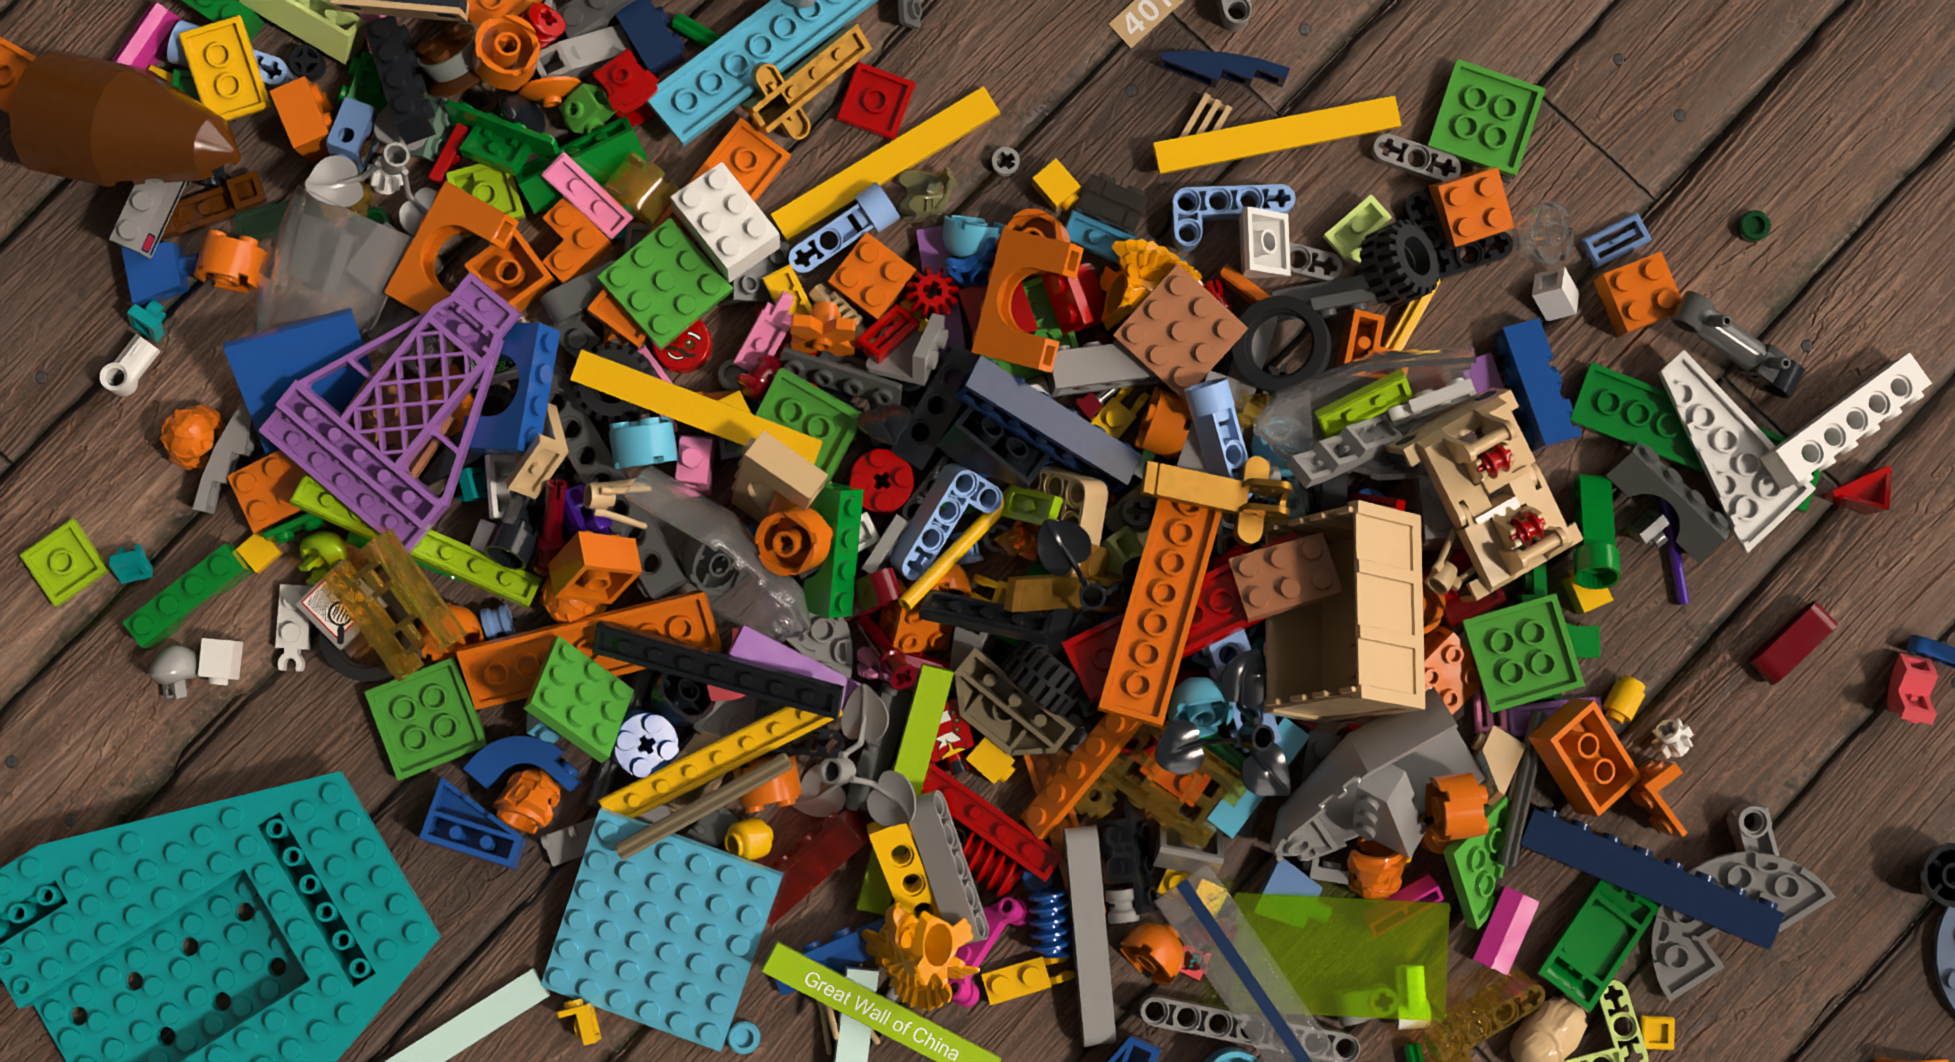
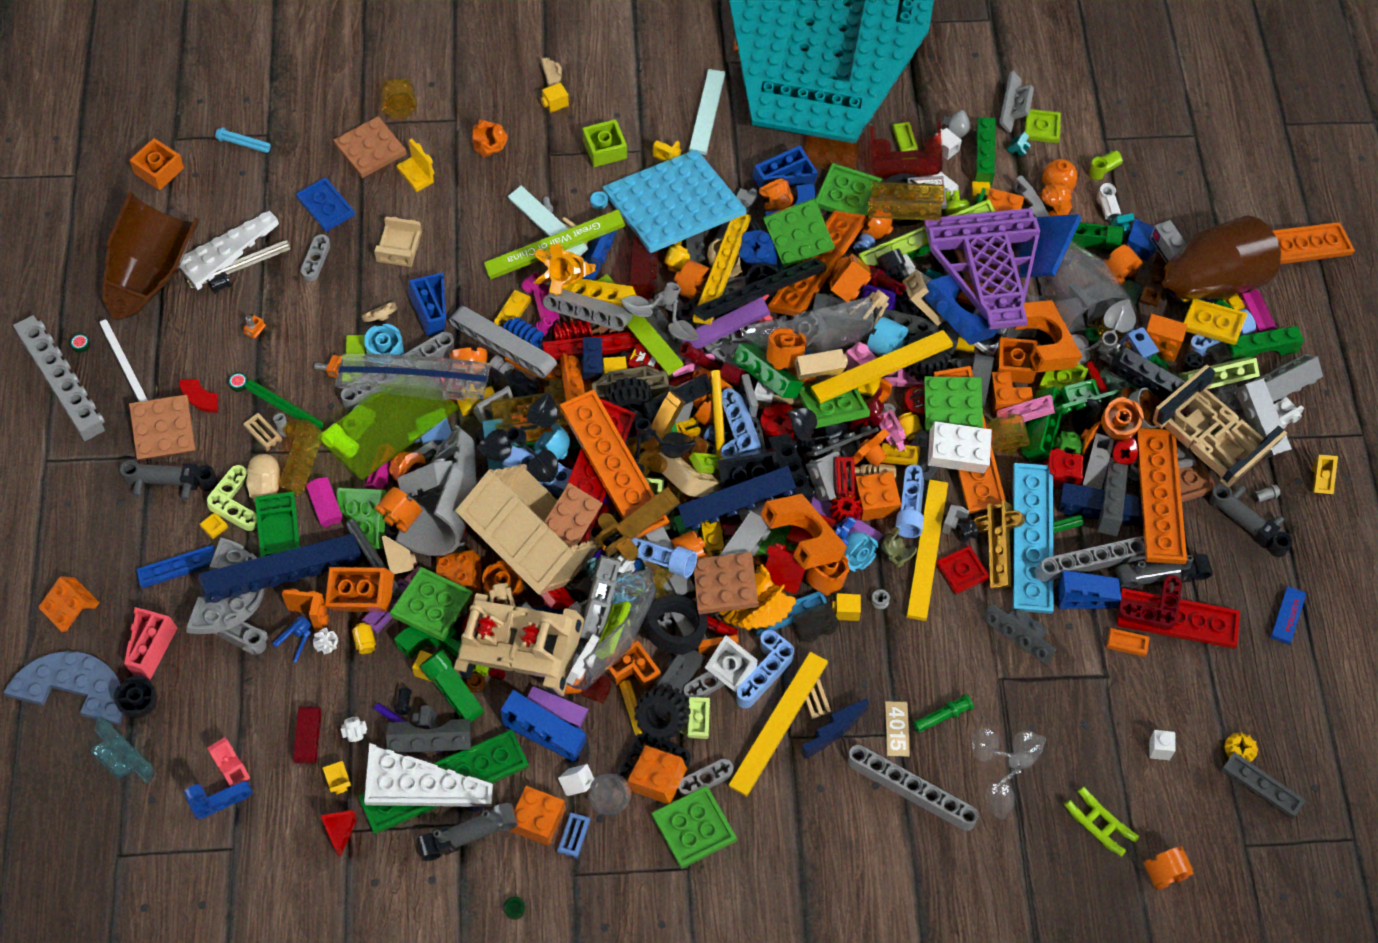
camera: 135 degrees right, 25 degrees down
(54, 627) = (1016, 101): none -> light grey bracket
(63, 422) = (1104, 164): none -> lime piece
(139, 466) = (1060, 171): none -> orange cylinder
(195, 315) = (1098, 236): none -> green beam
(258, 727) = (904, 137): none -> lime tile
(266, 36) = (1219, 353): none -> clear smoke tile
(302, 682) = (910, 162): none -> clear red windscreen
(384, 797) = (825, 151): none -> clear orange plate
(703, 806) = (707, 240): dark tan axle -> none
(732, 325) = (910, 425): none -> yellow head
(820, 135) = (967, 531): none -> black wheel
(821, 167) = (955, 513): none -> light grey bracket
(1015, 791) = (591, 358): none -> dark blue brick
(1651, 577) = (402, 705): none -> black pin
(1684, 788) = (297, 628): none -> blue plant
(1739, 595) = (353, 729): none -> white gear
(1747, 1018) = (175, 566): none -> blue tile
(1786, 460) = (375, 902): white brick -> none
(1808, 555) = (337, 777): none -> yellow bracket
(1872, 938) = (148, 642): none -> coral wedge

